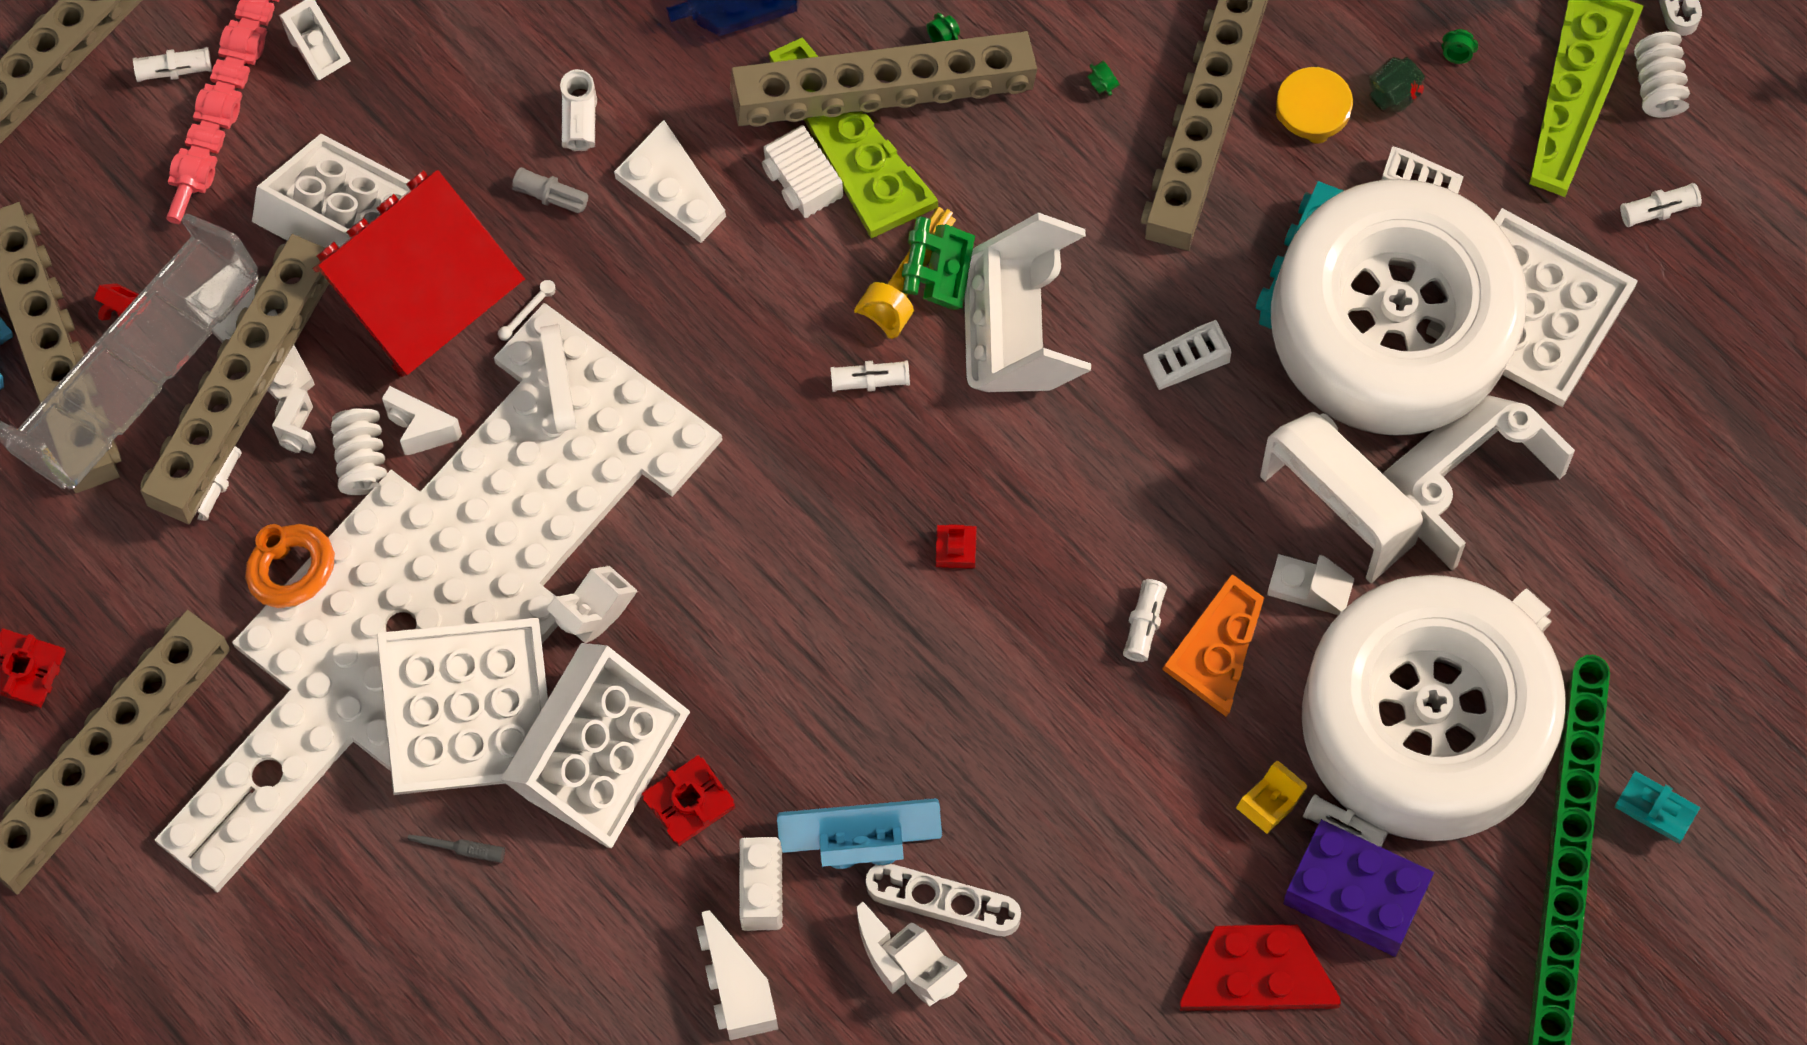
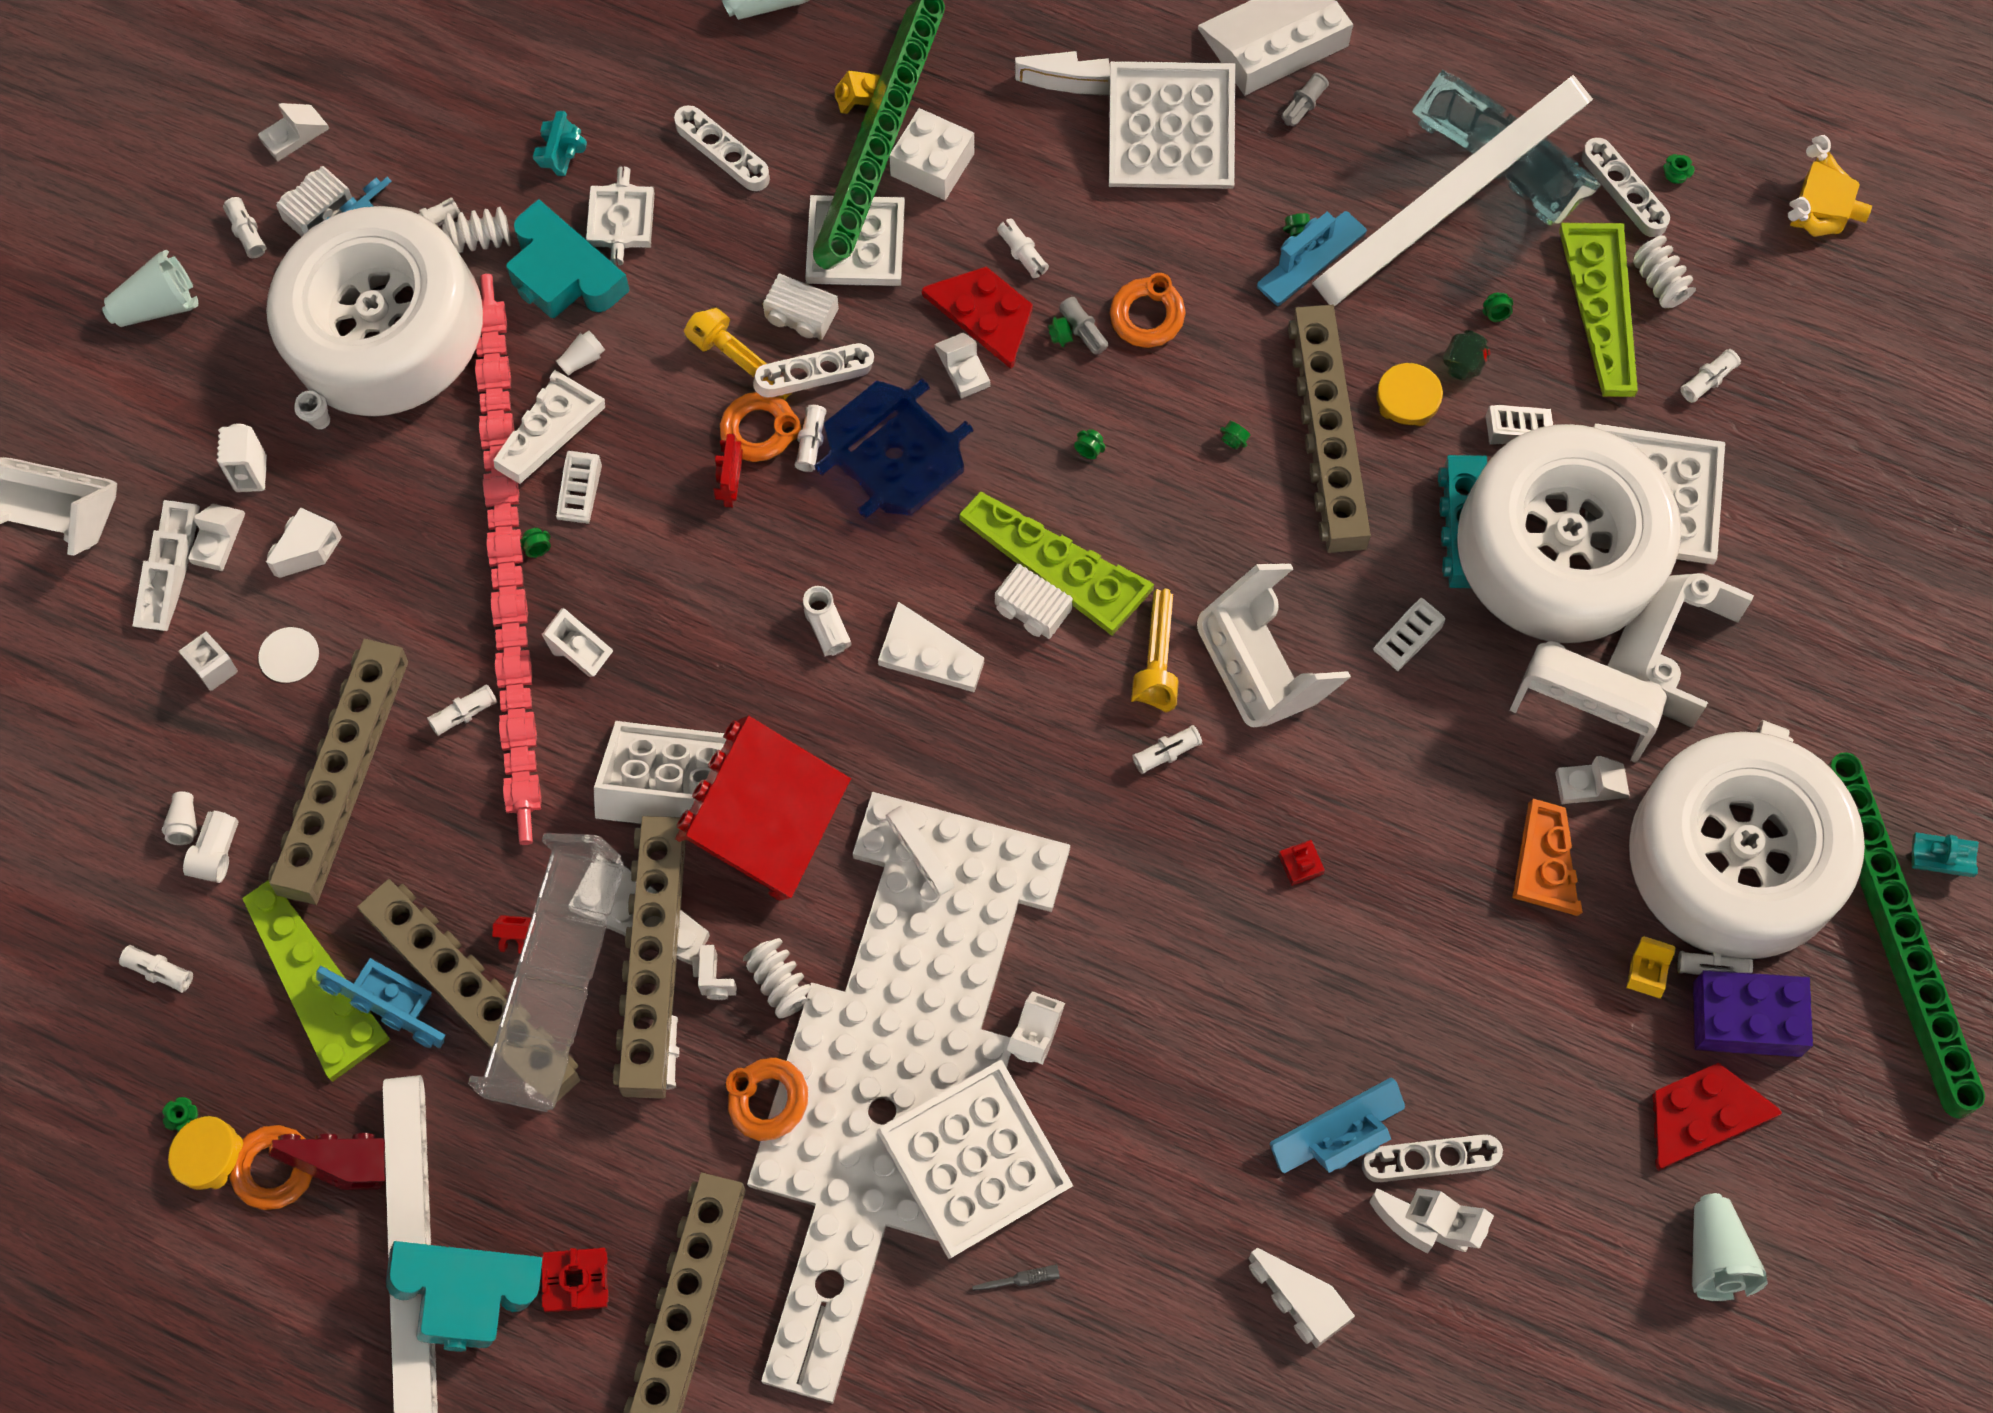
camera: 25 degrees left, 0 degrees up
(427, 425) = (825, 930): white slope -> none
(547, 289) = (866, 779): white hinge -> none
(549, 190) = (832, 696): light grey axle -> none
(596, 743) = (1095, 1146): white slope -> none
(689, 821) = (1168, 1162): red piece -> none
(761, 883) = (1283, 1207): white brick -> none
(897, 65) = (1019, 516): dark tan brick -> none
(947, 267) = (1188, 634): green plate -> none
(1144, 620) = (1480, 863): white pin -> none

